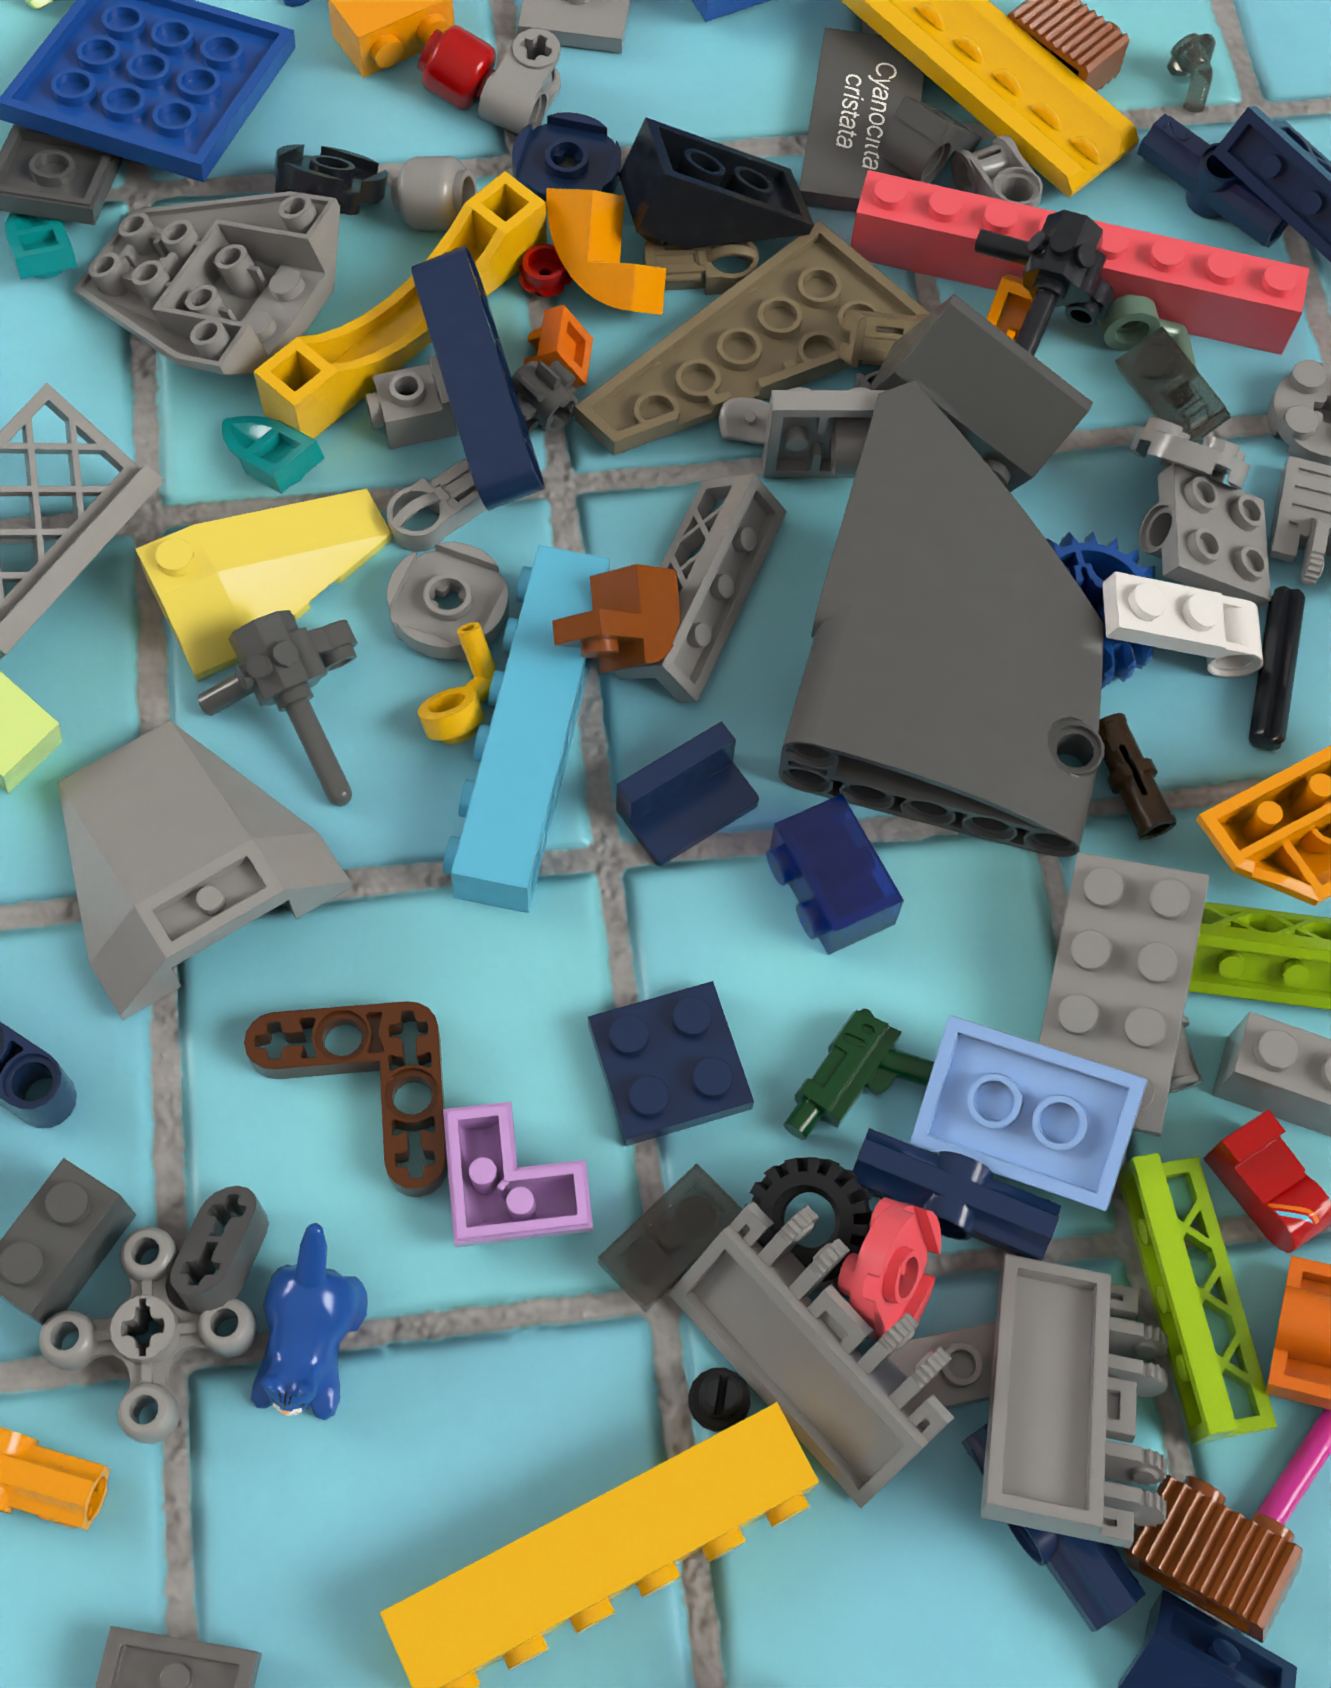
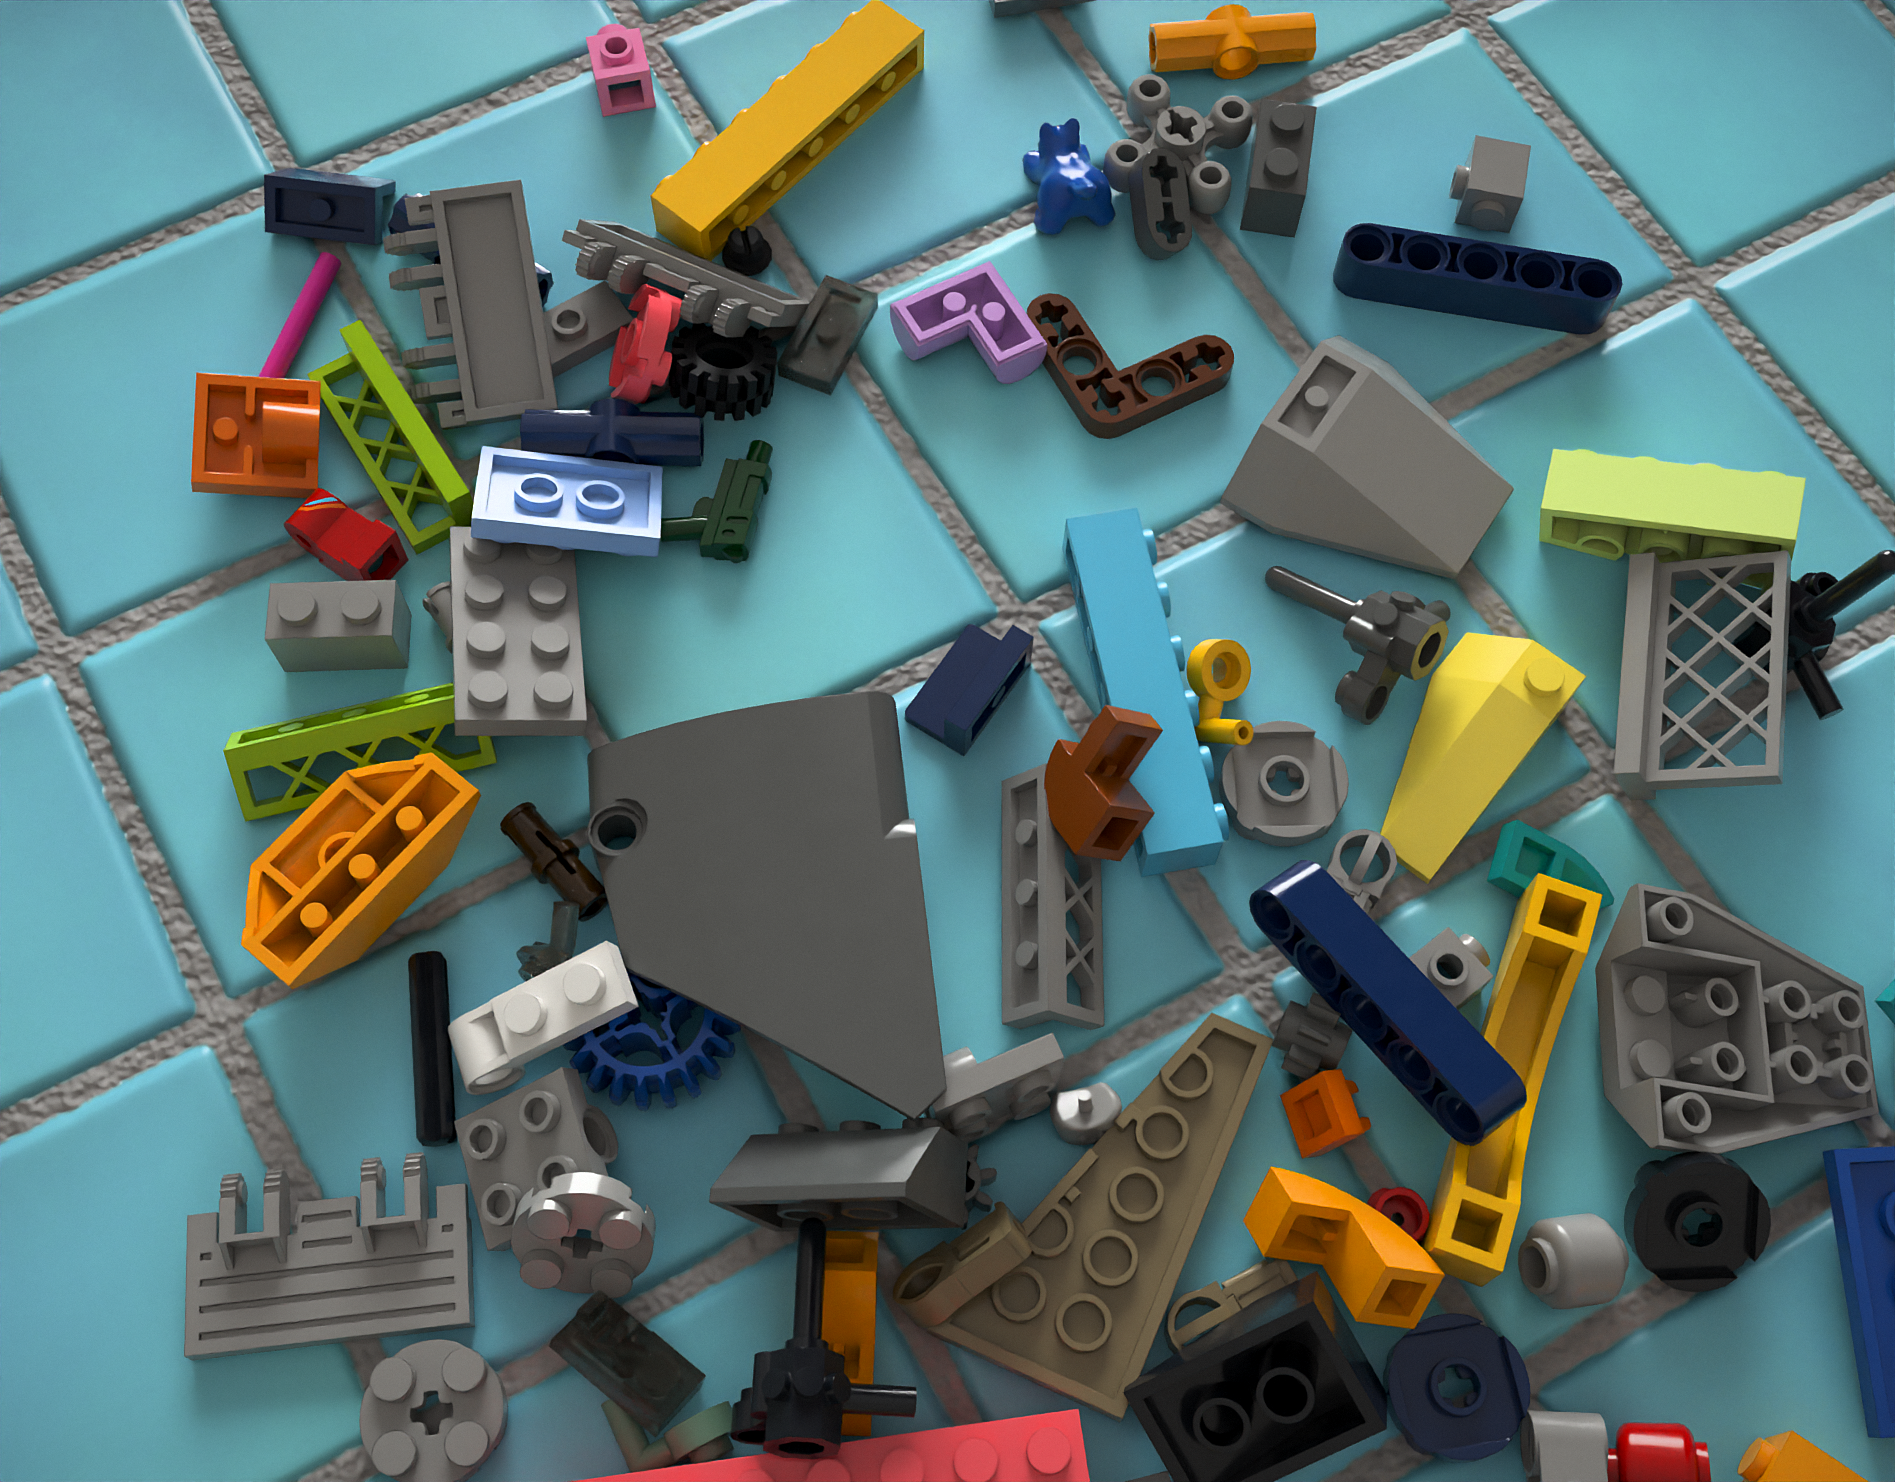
camera: 160 degrees right, 0 degrees up
(670, 1063) = (886, 465): dark blue plate -> none
(833, 875) = (803, 648): clear blue brick -> none
(1162, 689) = (542, 956): none -> clear smoke plate
(1218, 1556) = (336, 254): dark orange brick -> none

